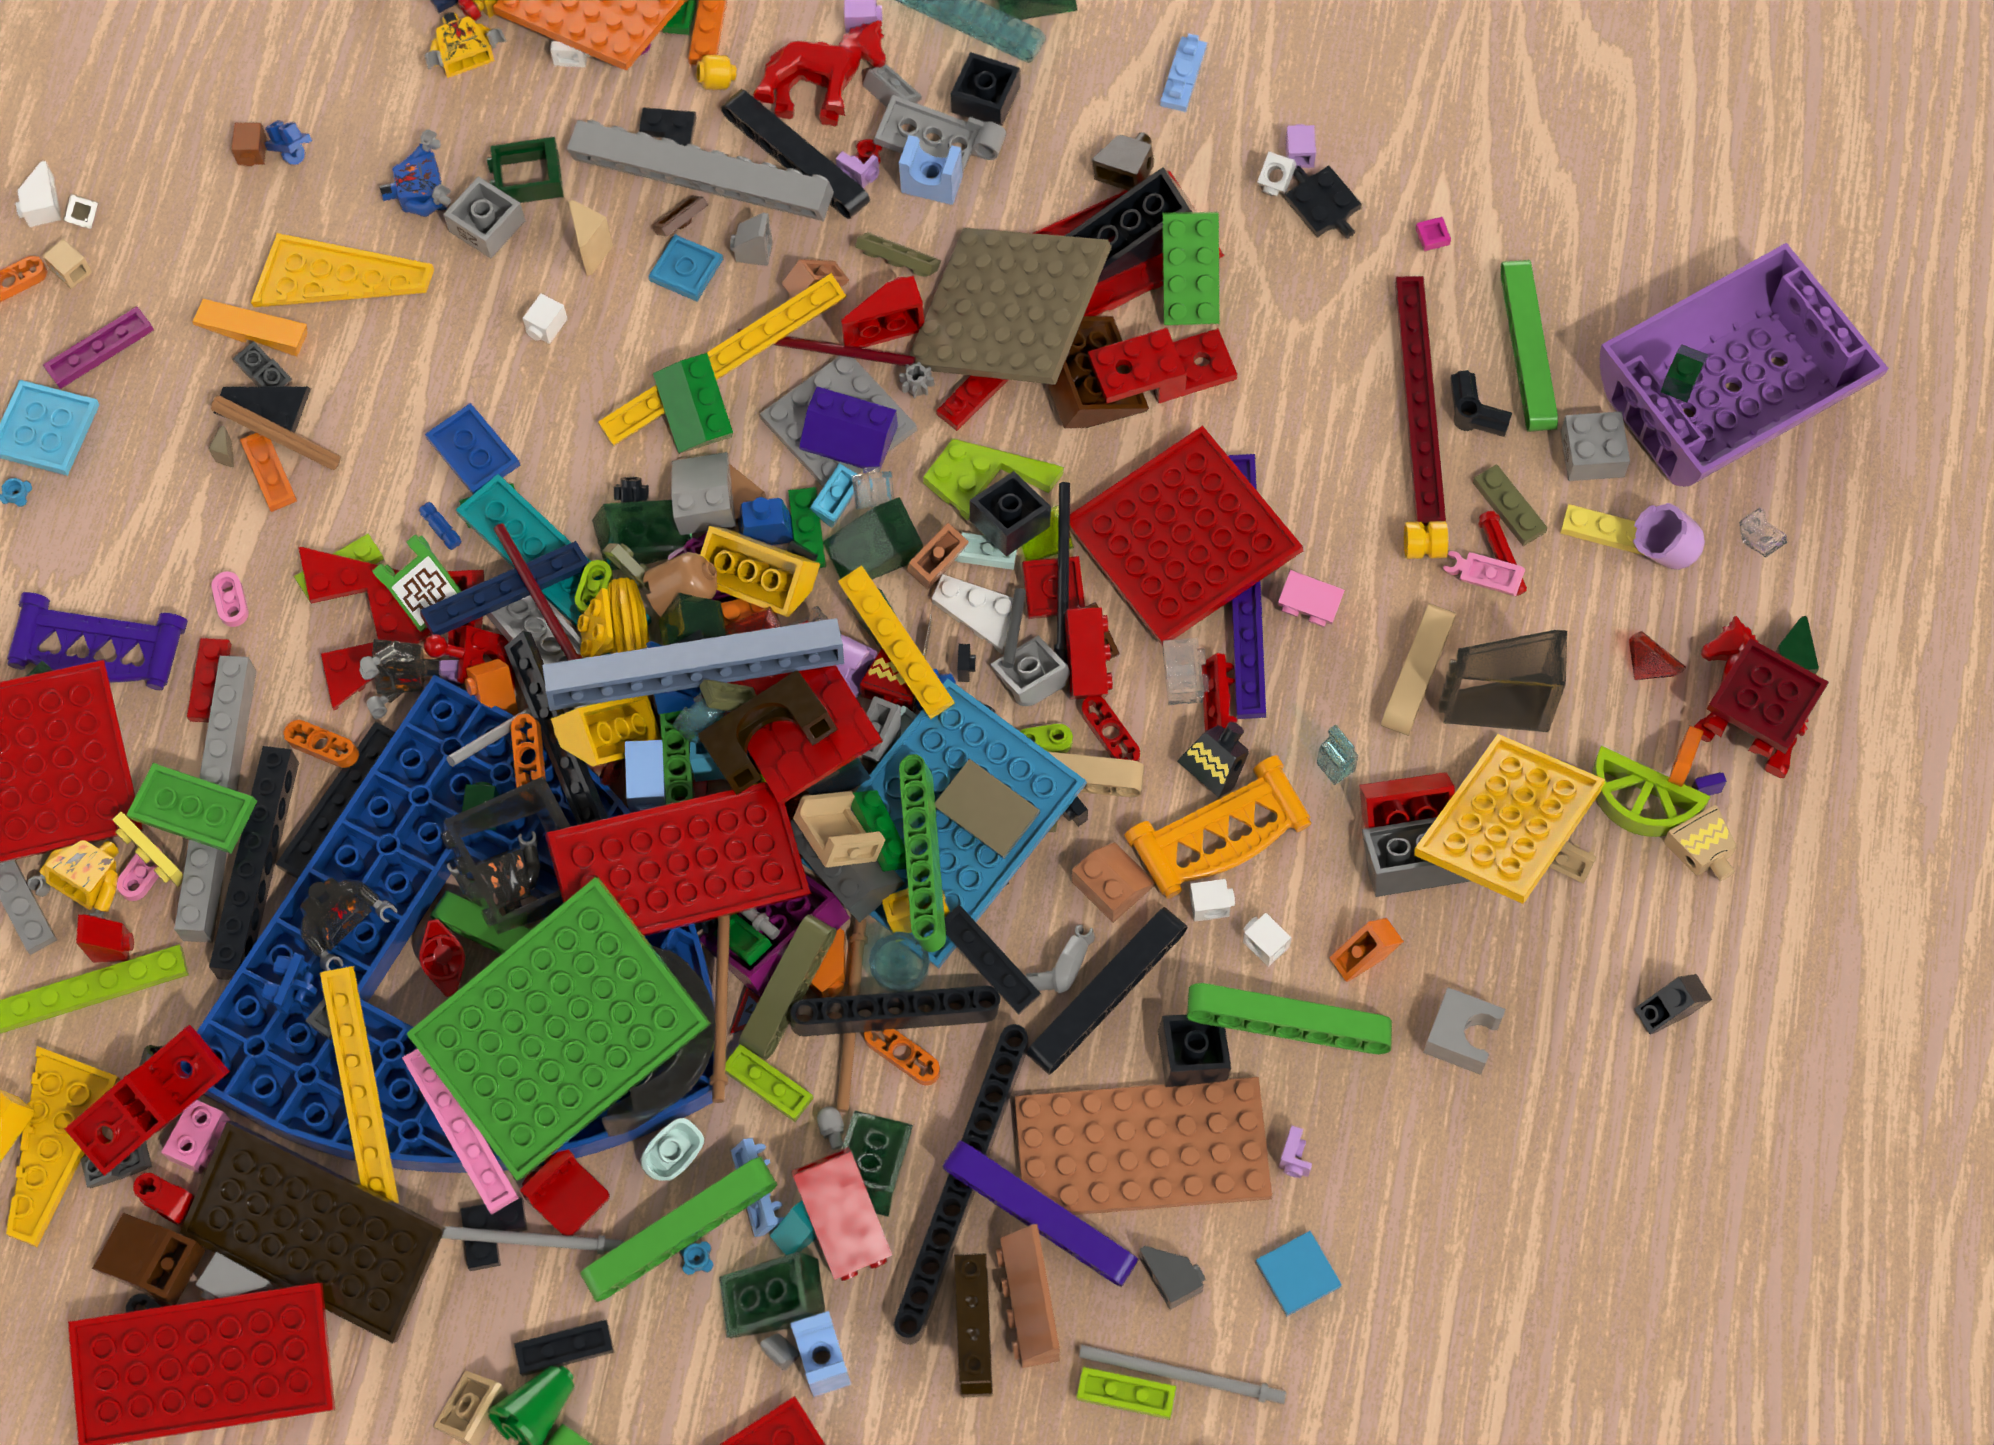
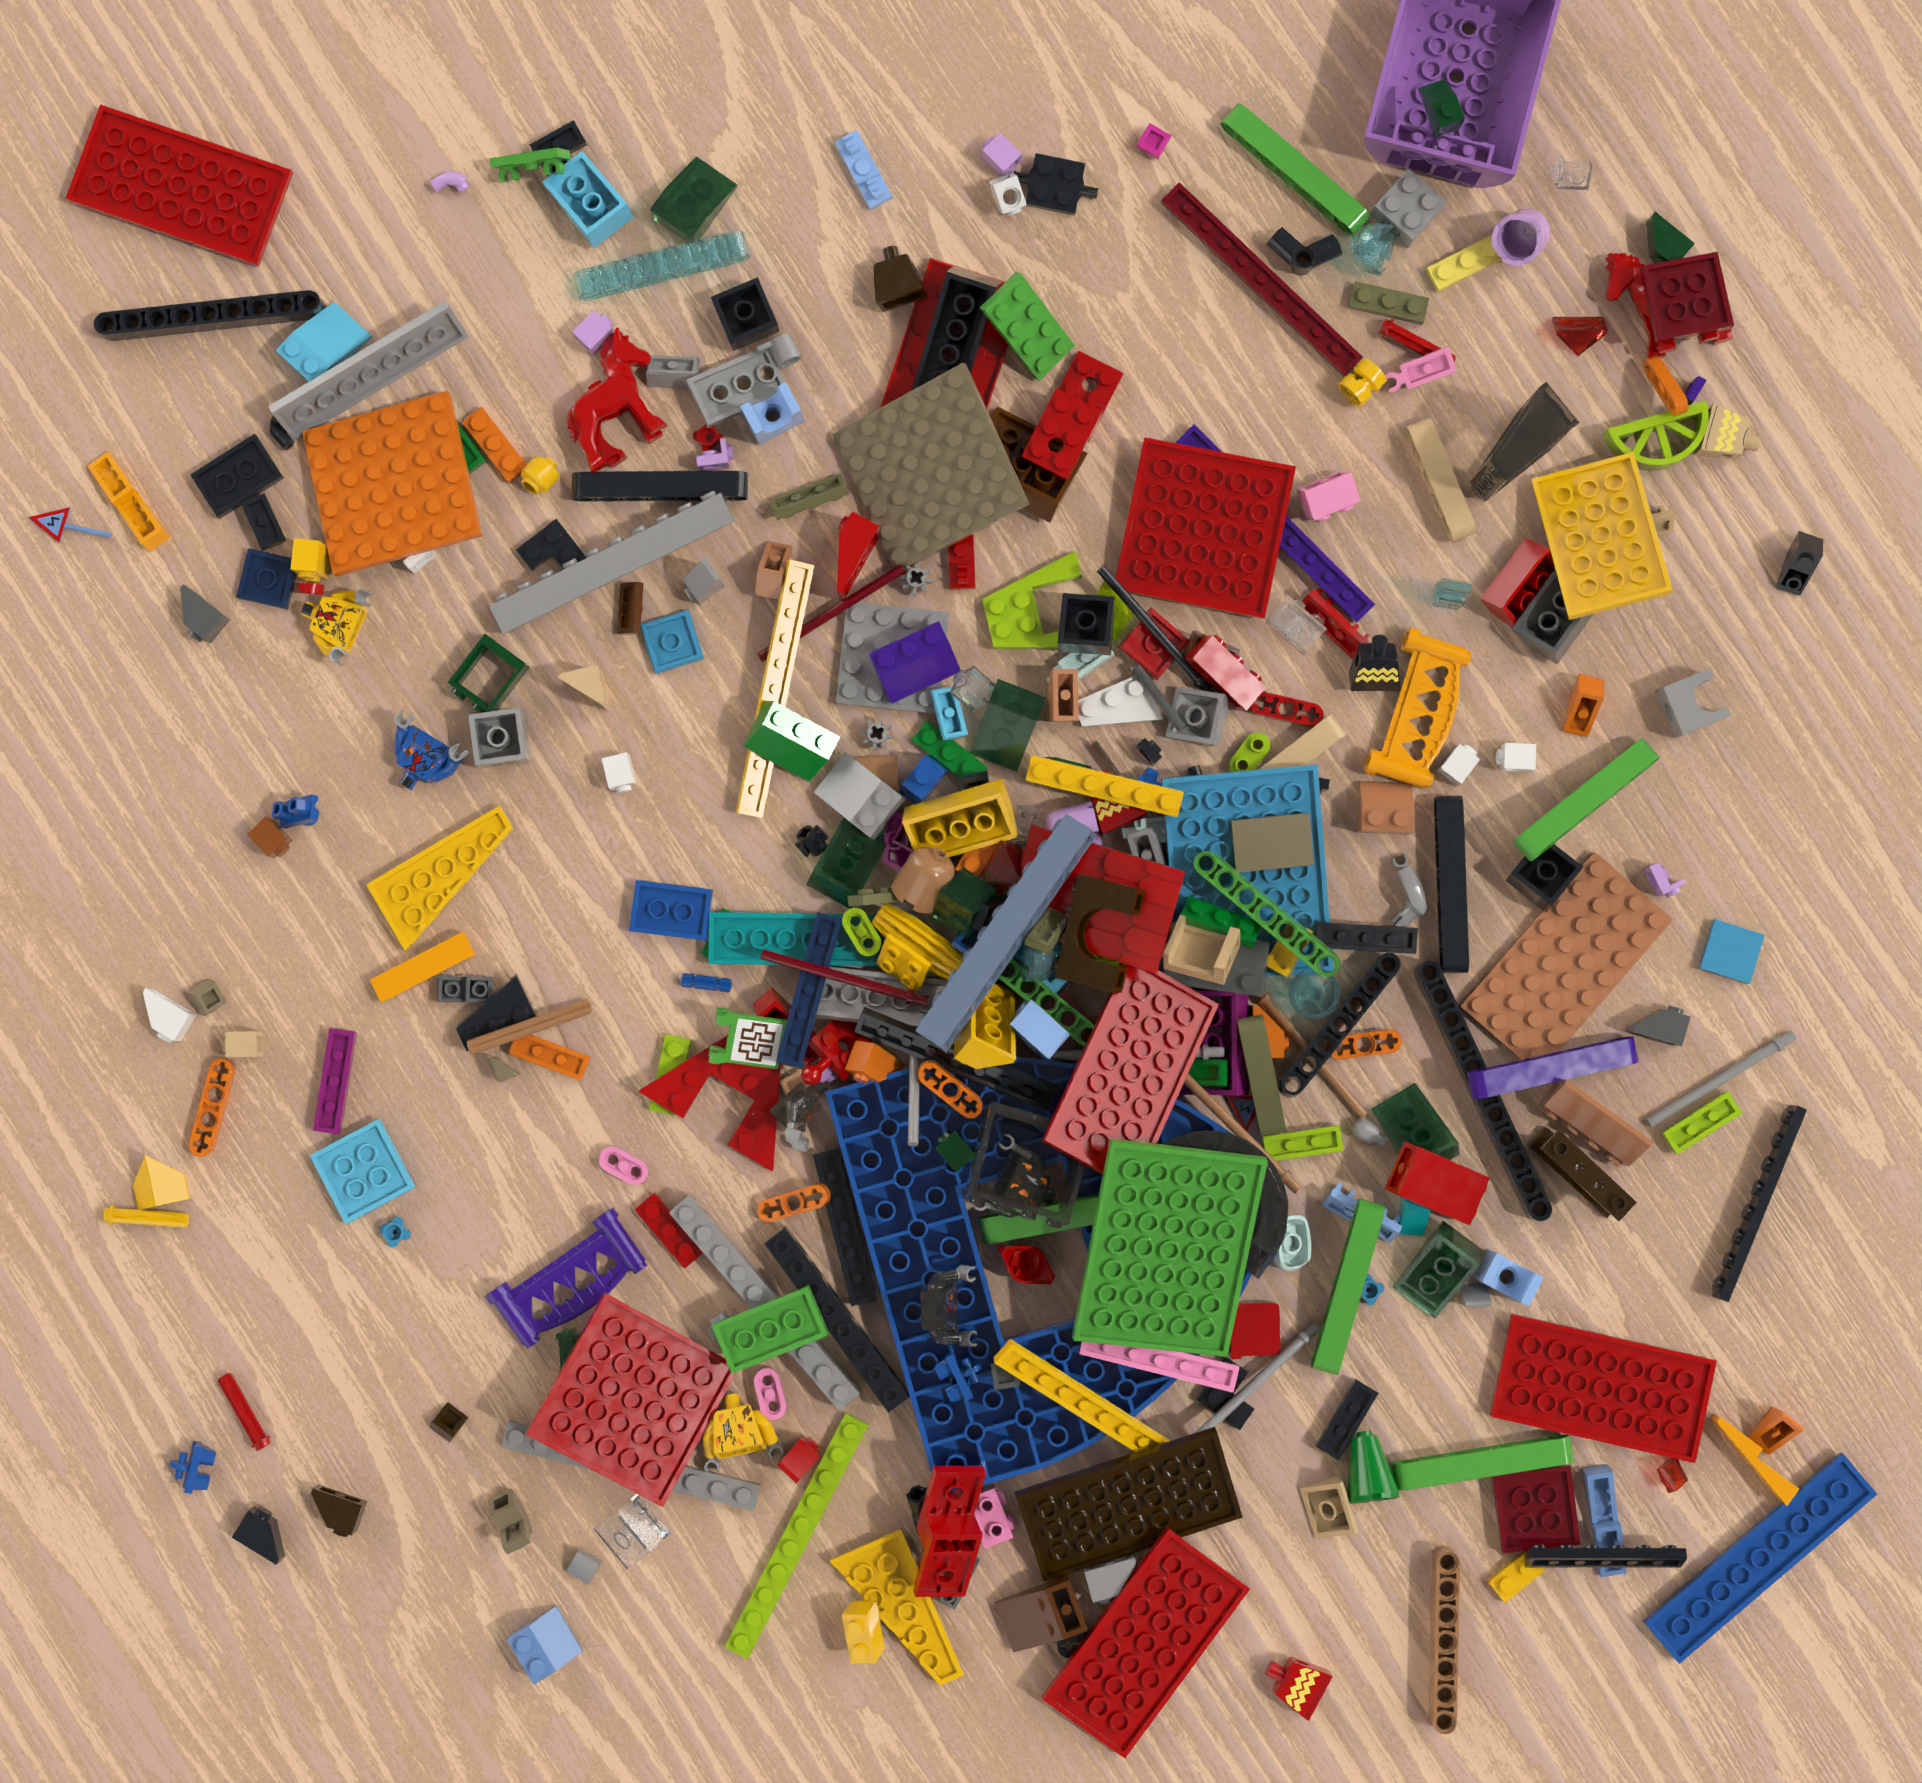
camera: 45 degrees left, 20 degrees up
(147, 850) = (765, 1379): light yellow plate -> none
(167, 1199) = (1017, 1569): red piece -> none
(765, 462) = (879, 727): none -> light grey gear
(1536, 449) = (1373, 247): none -> clear light blue cylinder

